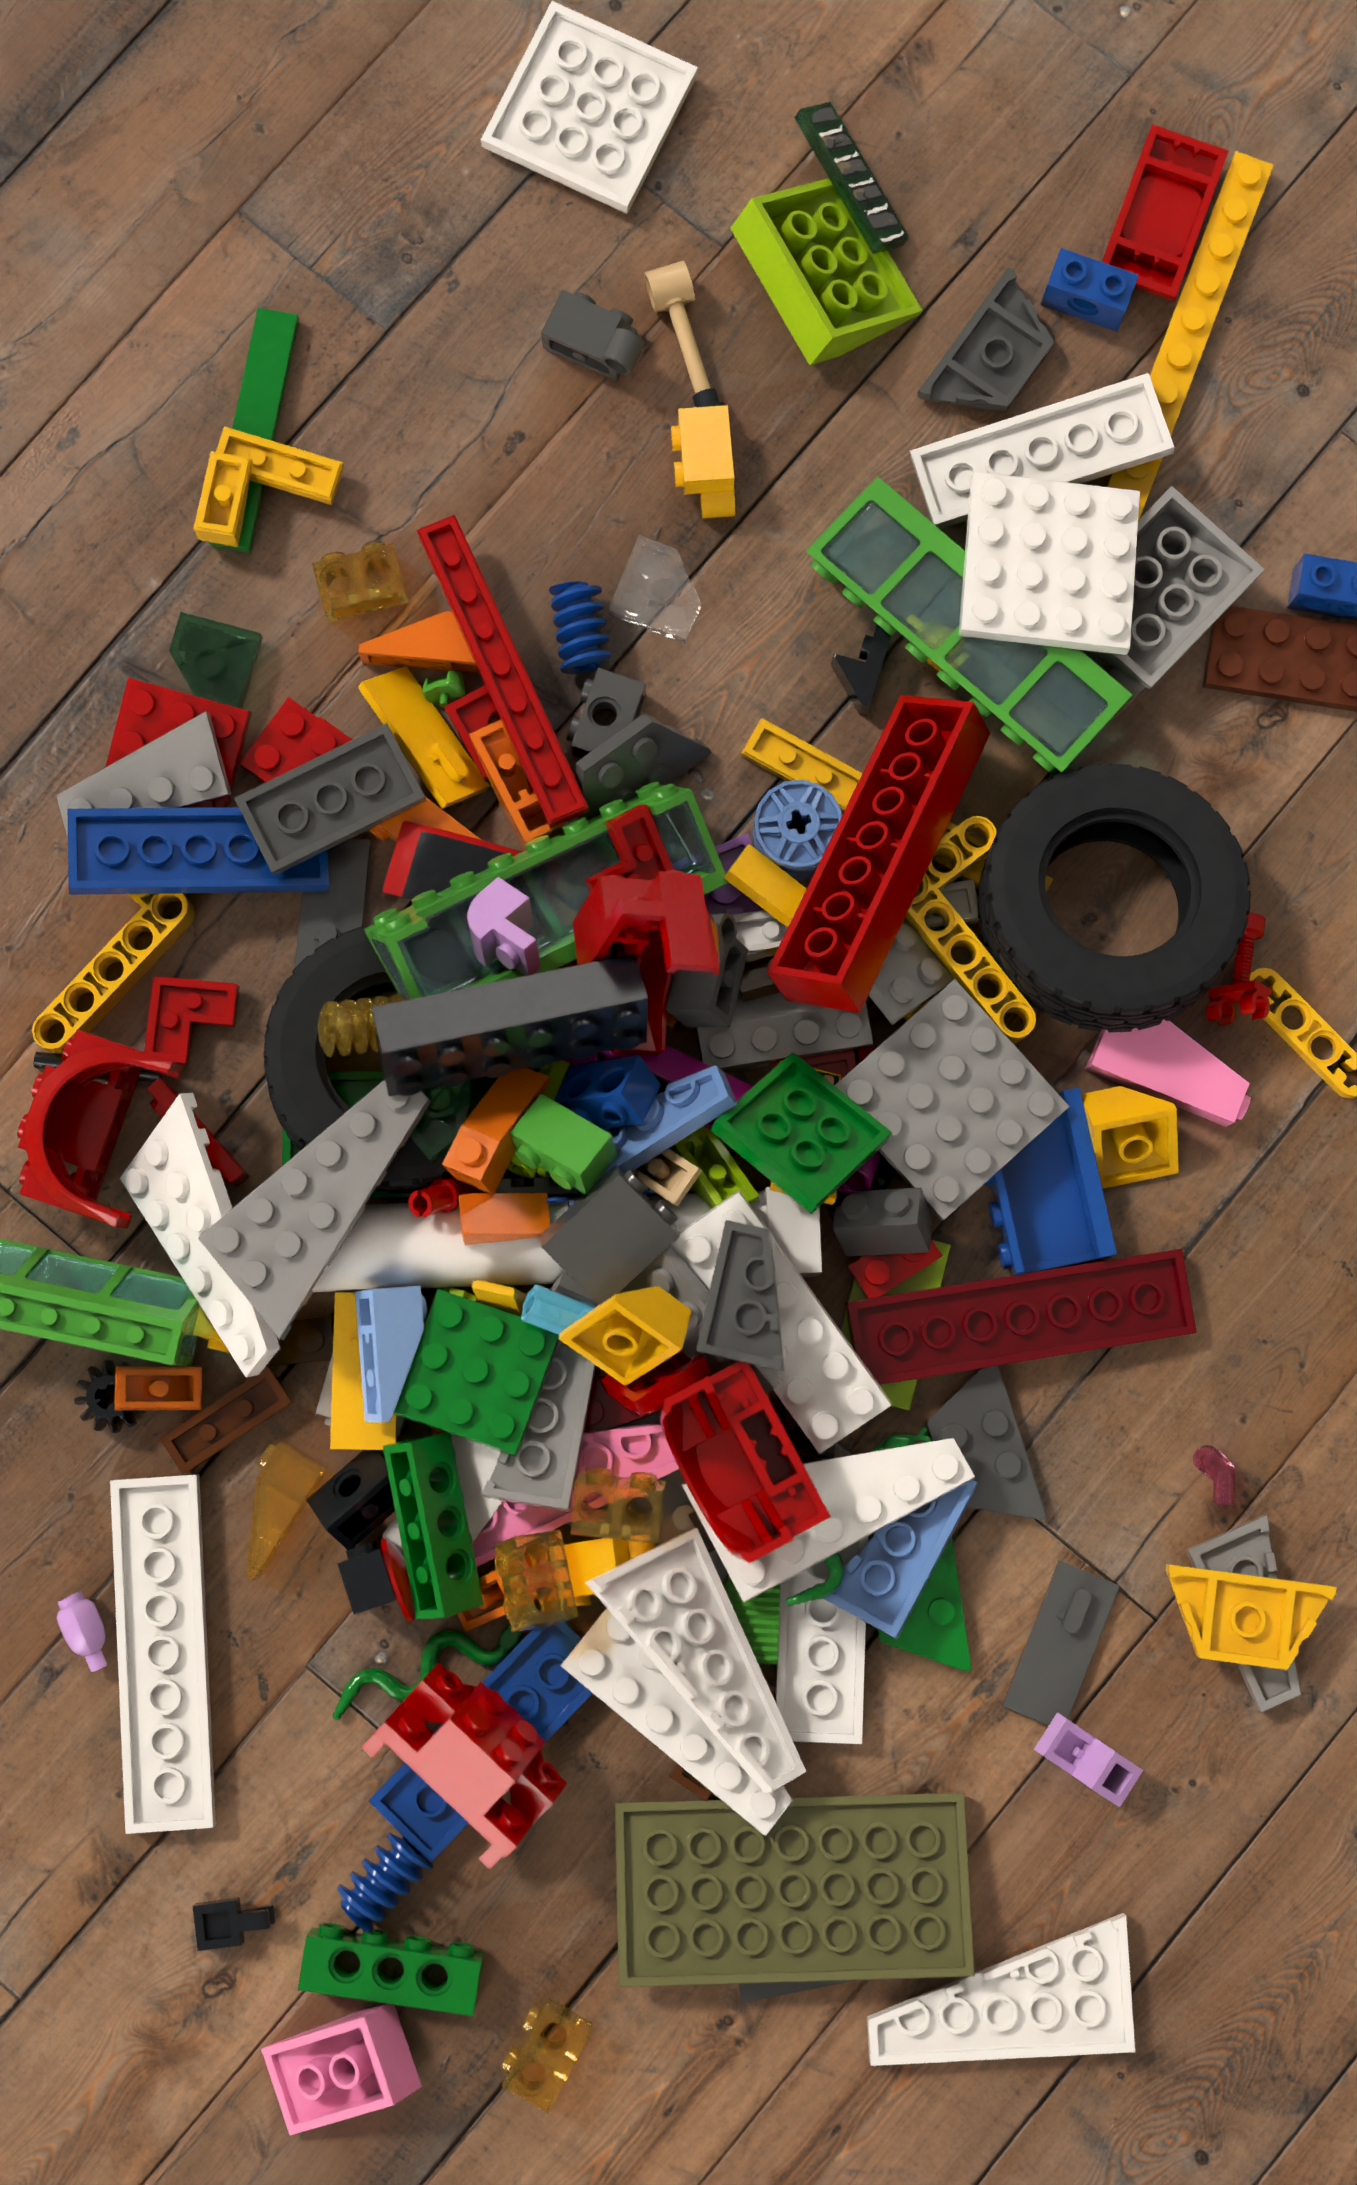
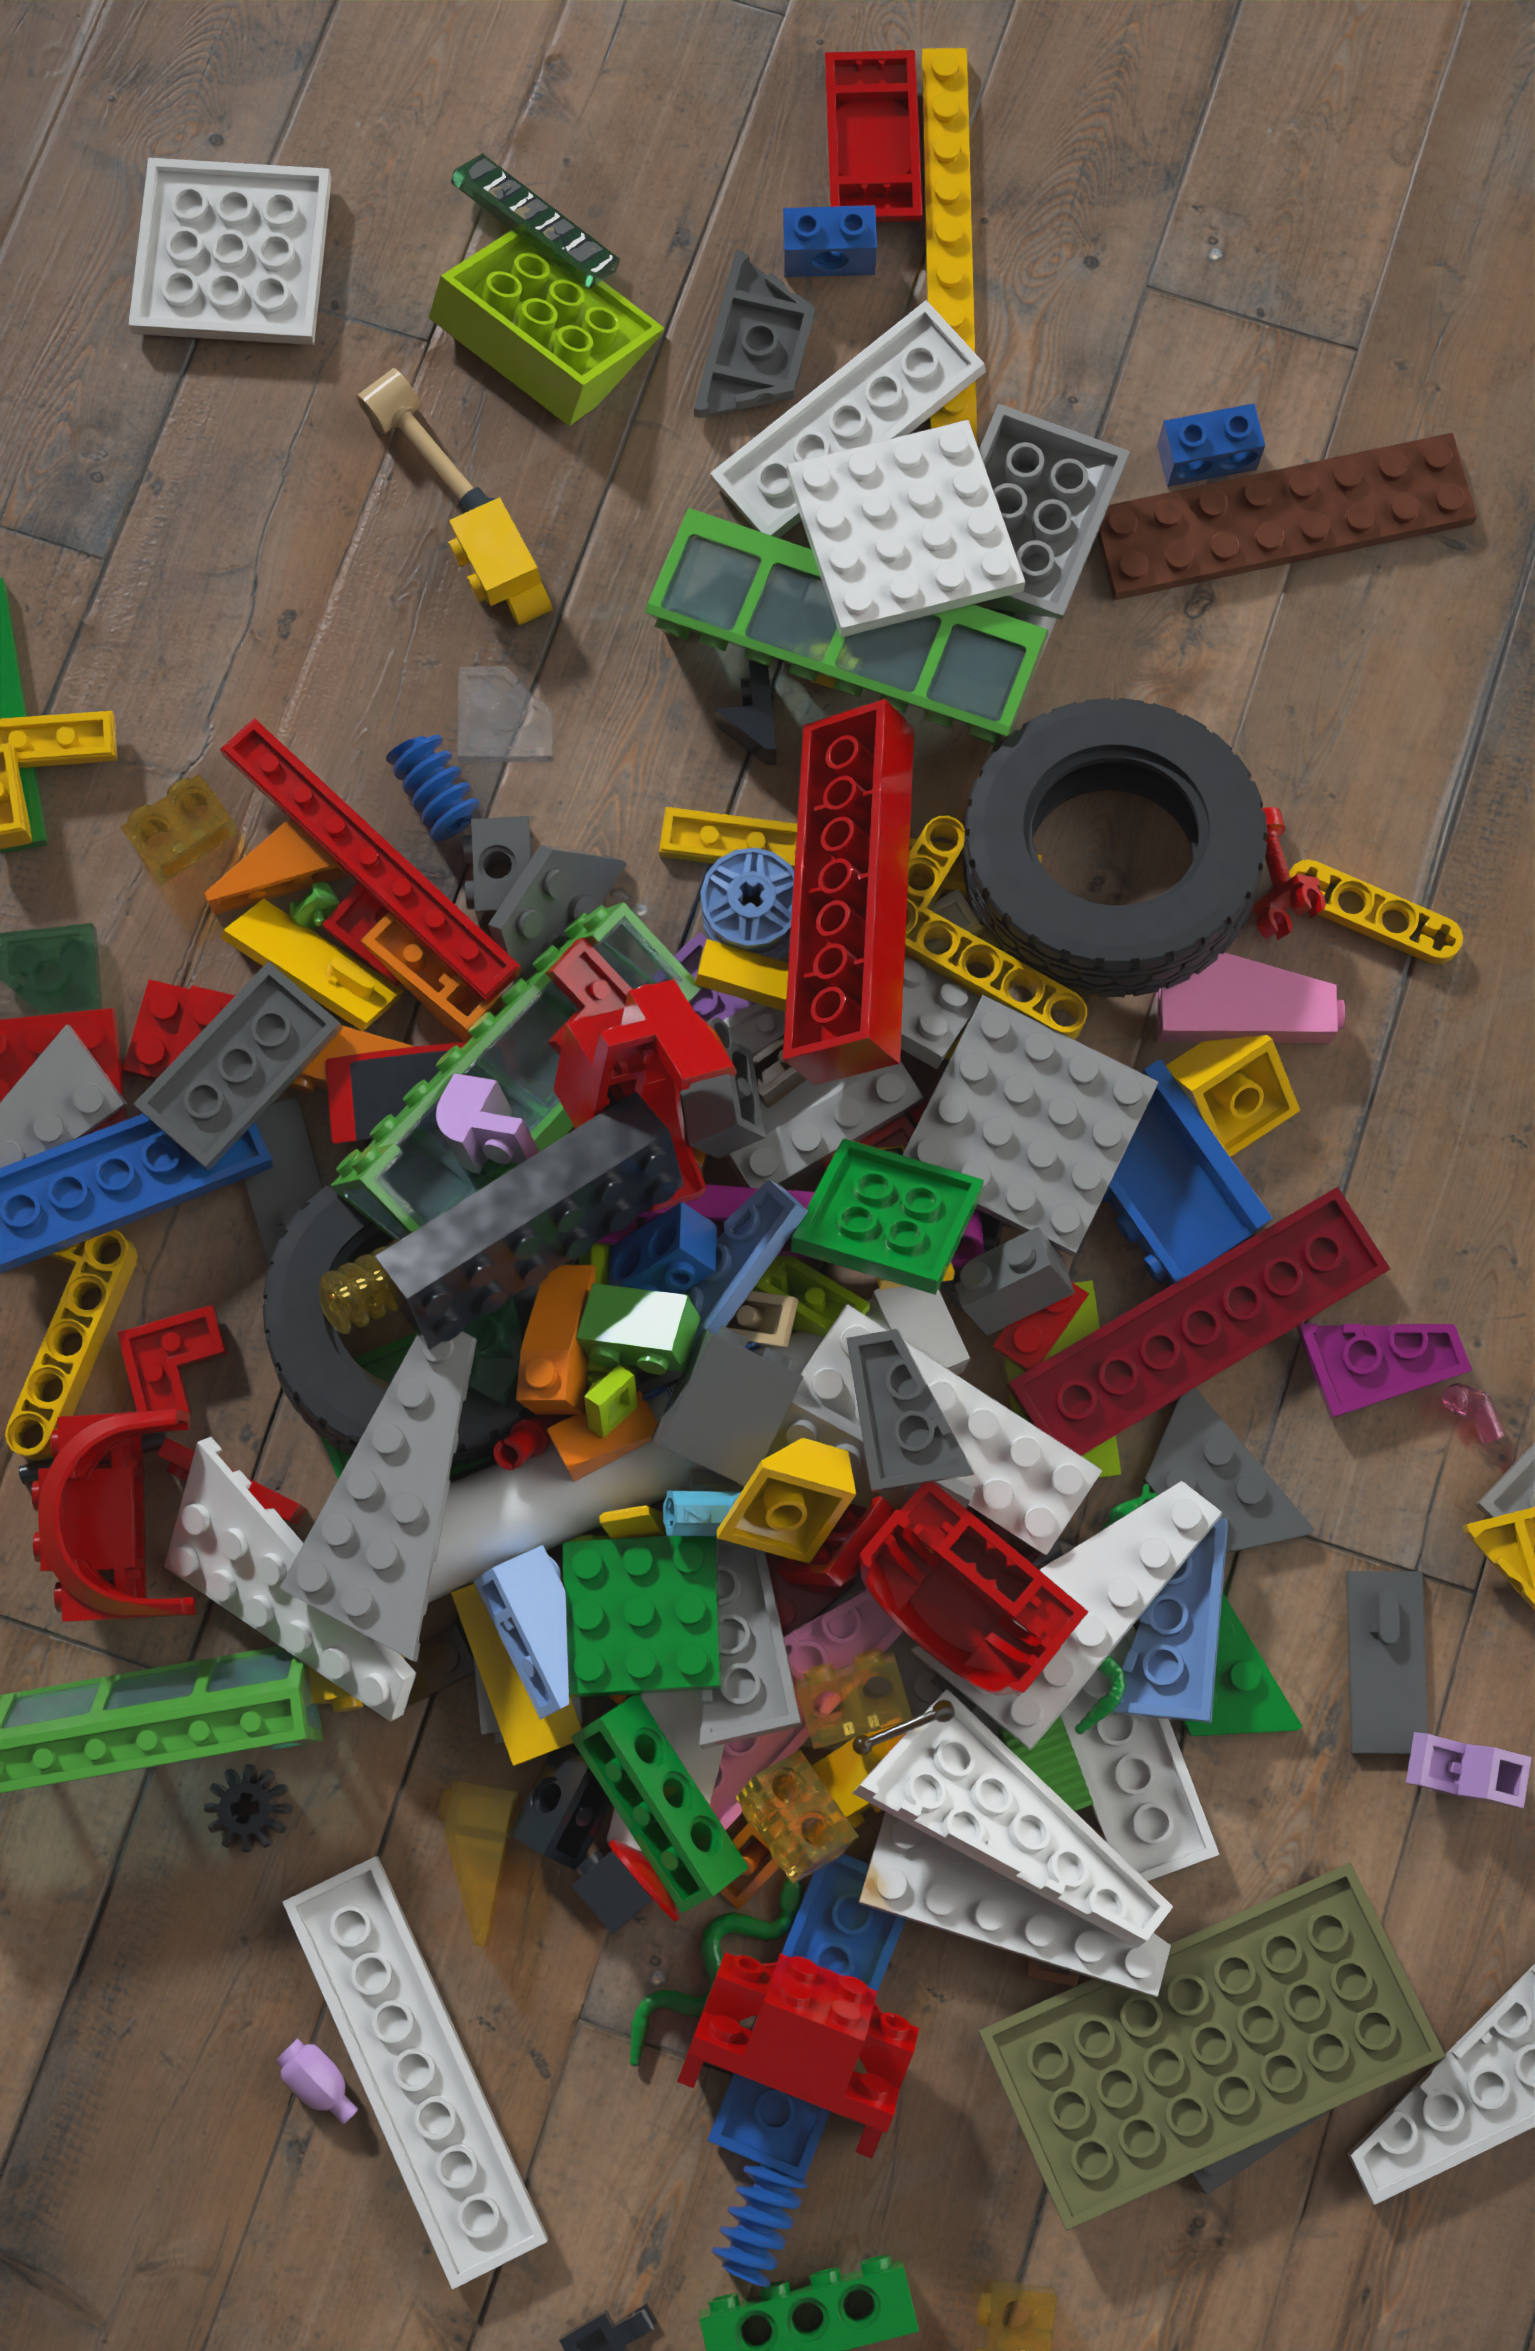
camera: 20 degrees left, 5 degrees down
(158, 1388) = (297, 1776): orange slope -> none
(226, 1420) = (385, 1784): reddish brown plate -> none
(518, 1193) = (610, 1401): none -> lime plate
(592, 335) = (327, 481): dark grey hinge -> none
(683, 1546) = (942, 1711): none -> dark brown hinge
(1154, 1404) = (1379, 1362): none -> magenta wing

